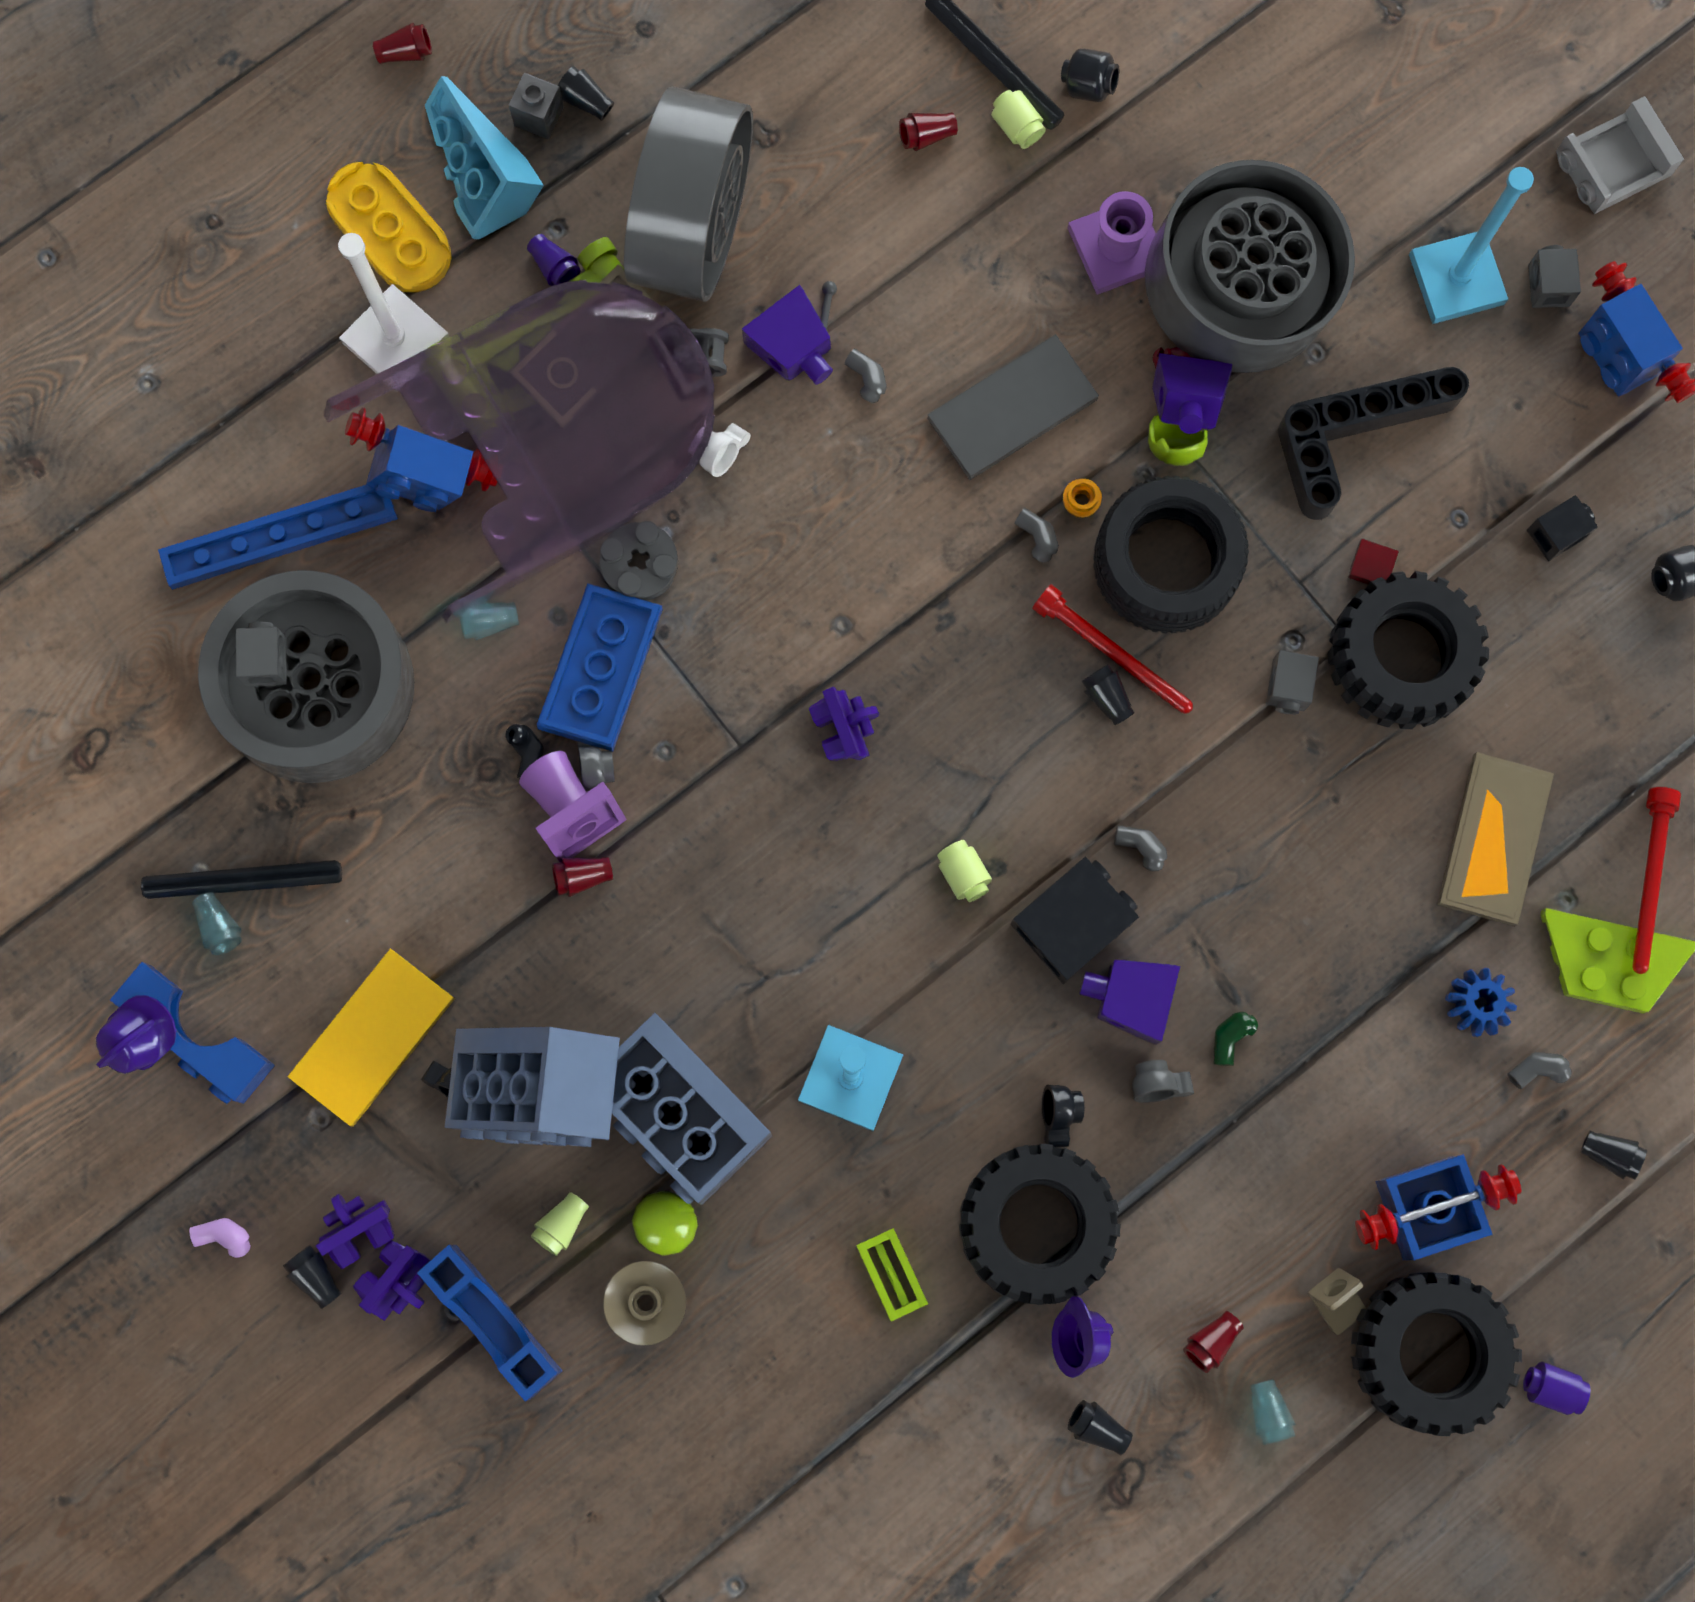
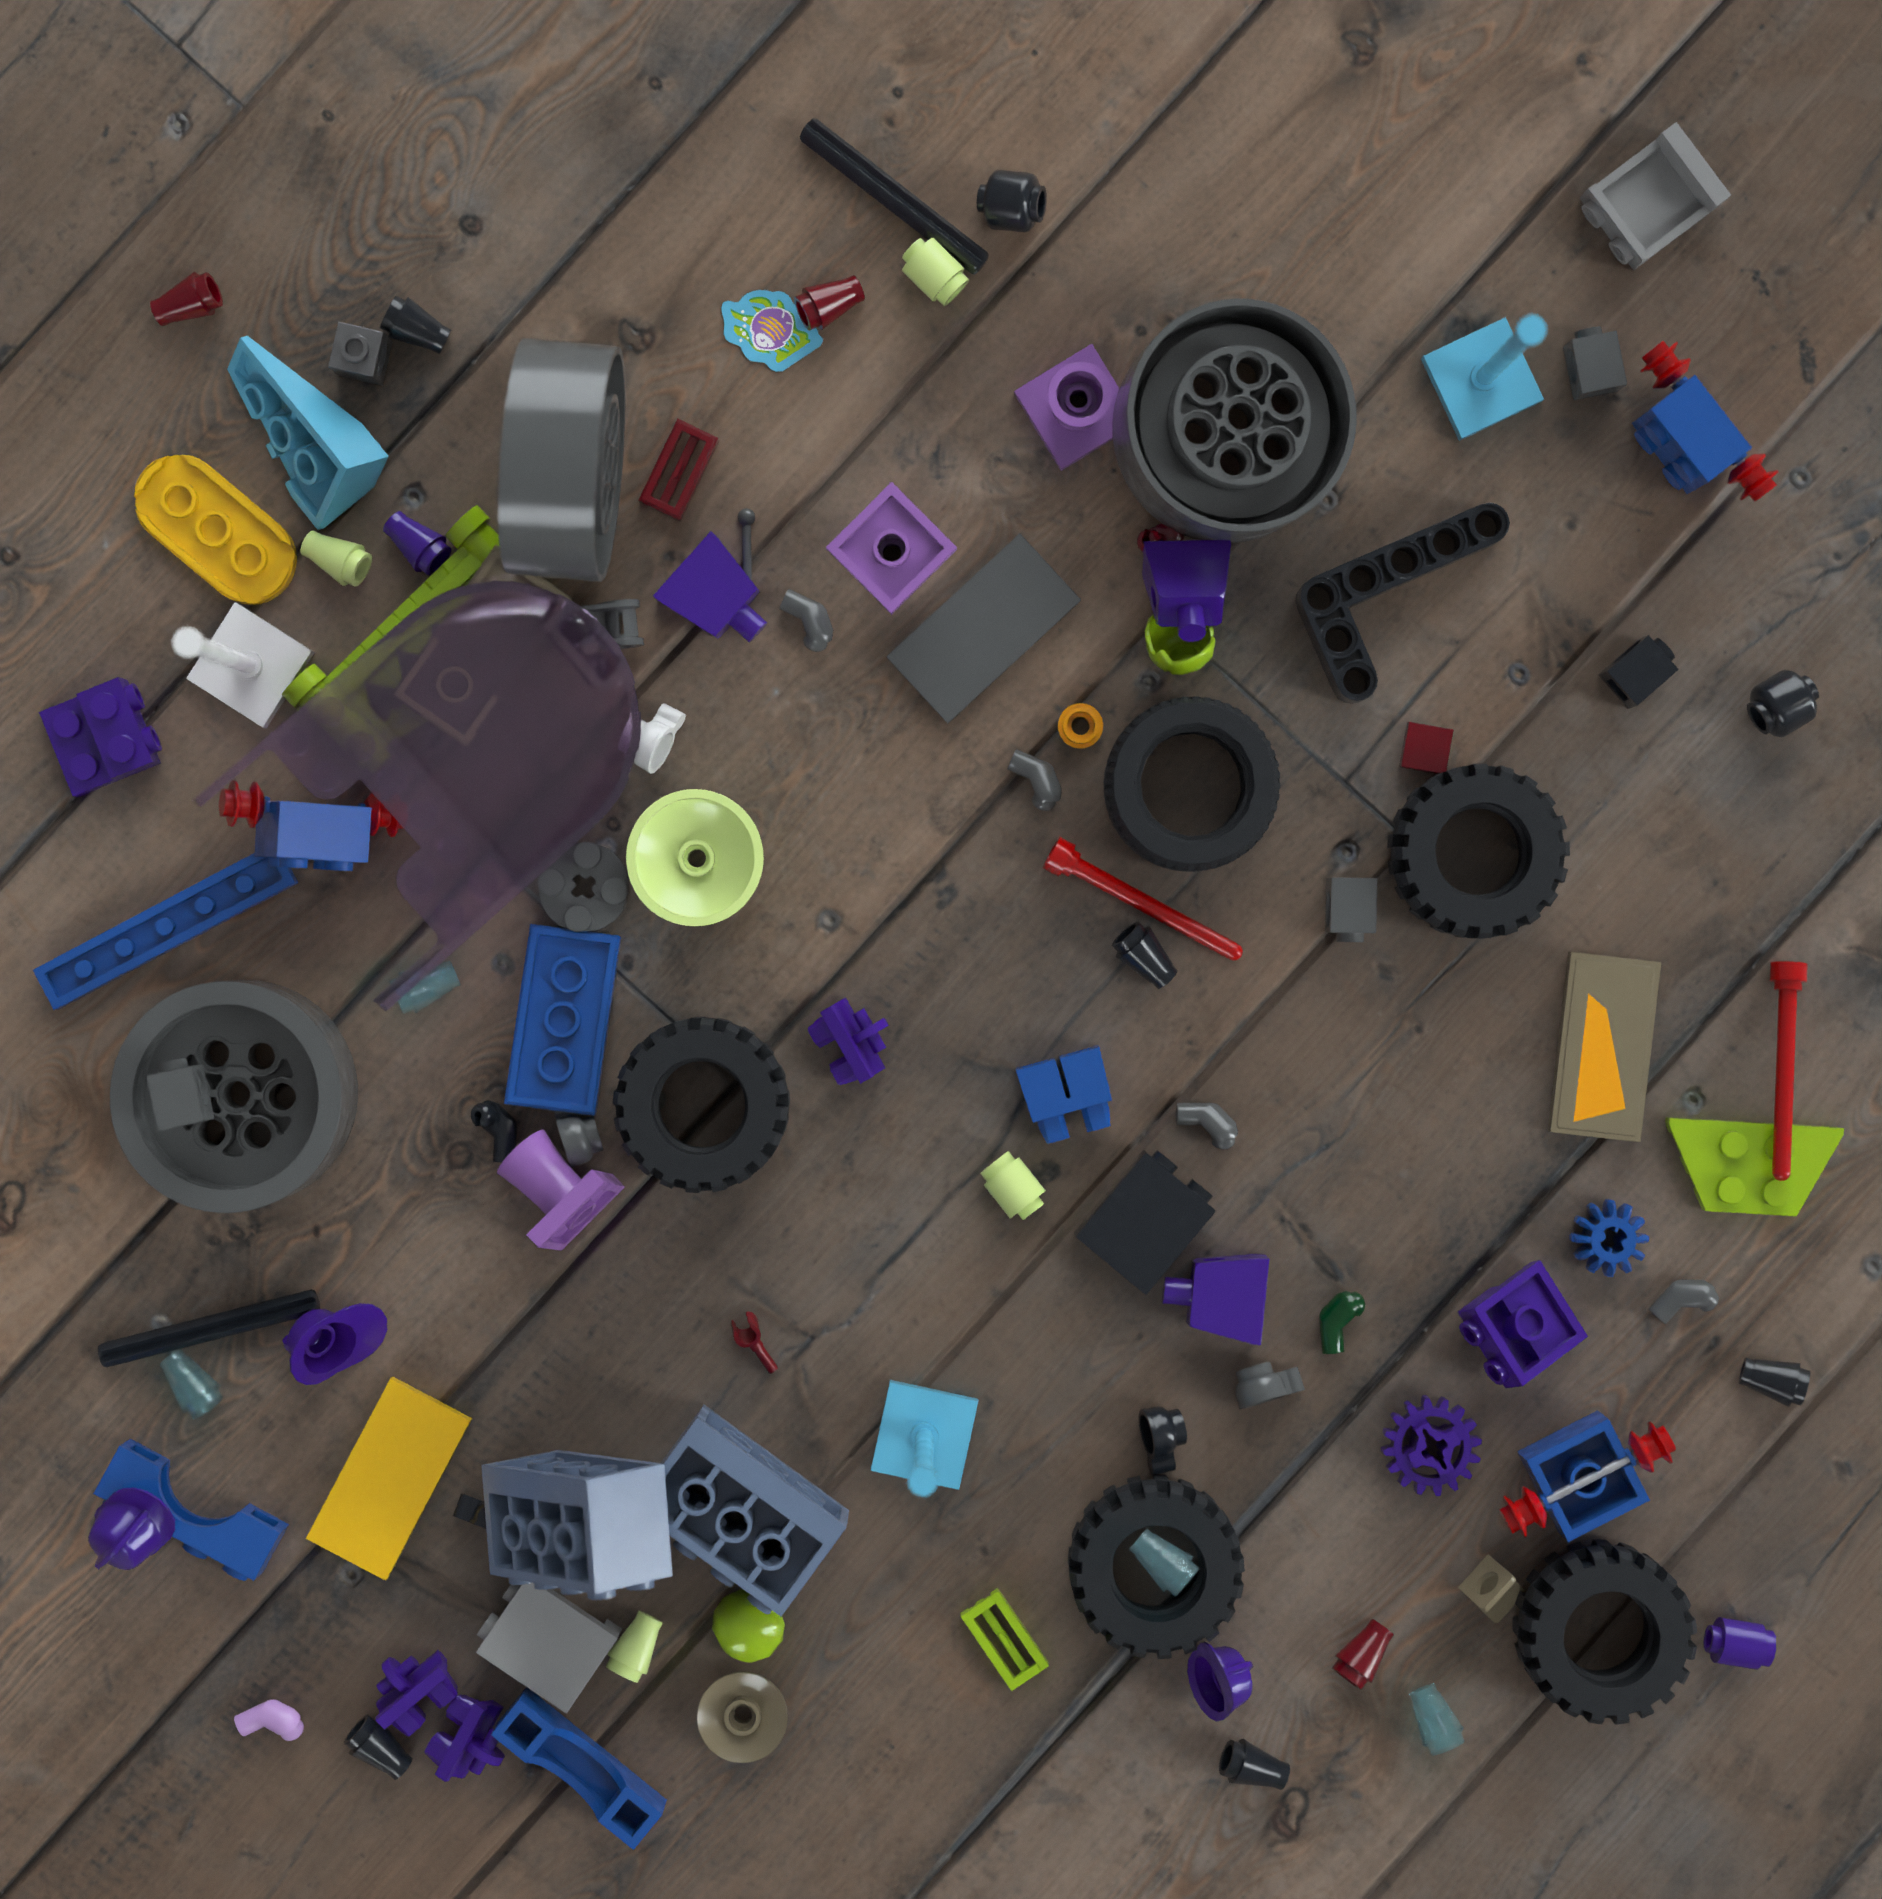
camera: 10 degrees left, 10 degrees up
(258, 373) = (101, 736): none -> dark purple plate
(349, 905) = (330, 1341): none -> dark purple piece
(482, 1203) = (546, 1643): none -> light grey panel
(486, 263) = (339, 558): none -> yellowish green cone
(580, 874) = (585, 1260): dark red cone -> none
(698, 701) = (639, 1108): none -> black tyre
(713, 967) = (751, 1338): none -> dark red hand
(732, 522) = (661, 851): none -> yellowish green dish
(762, 267) = (663, 504): none -> dark red tile
(874, 146) = (768, 329): none -> sticker
(948, 316) = (884, 523): none -> medium lavender plant
(1006, 801) = (1086, 1088): none -> blue hips
(1051, 1211) = (1164, 1562): none -> clear light blue cone
(1305, 1178) = (1415, 1454): none -> dark purple gear
(1393, 1066) = (1521, 1326): none -> dark purple plate

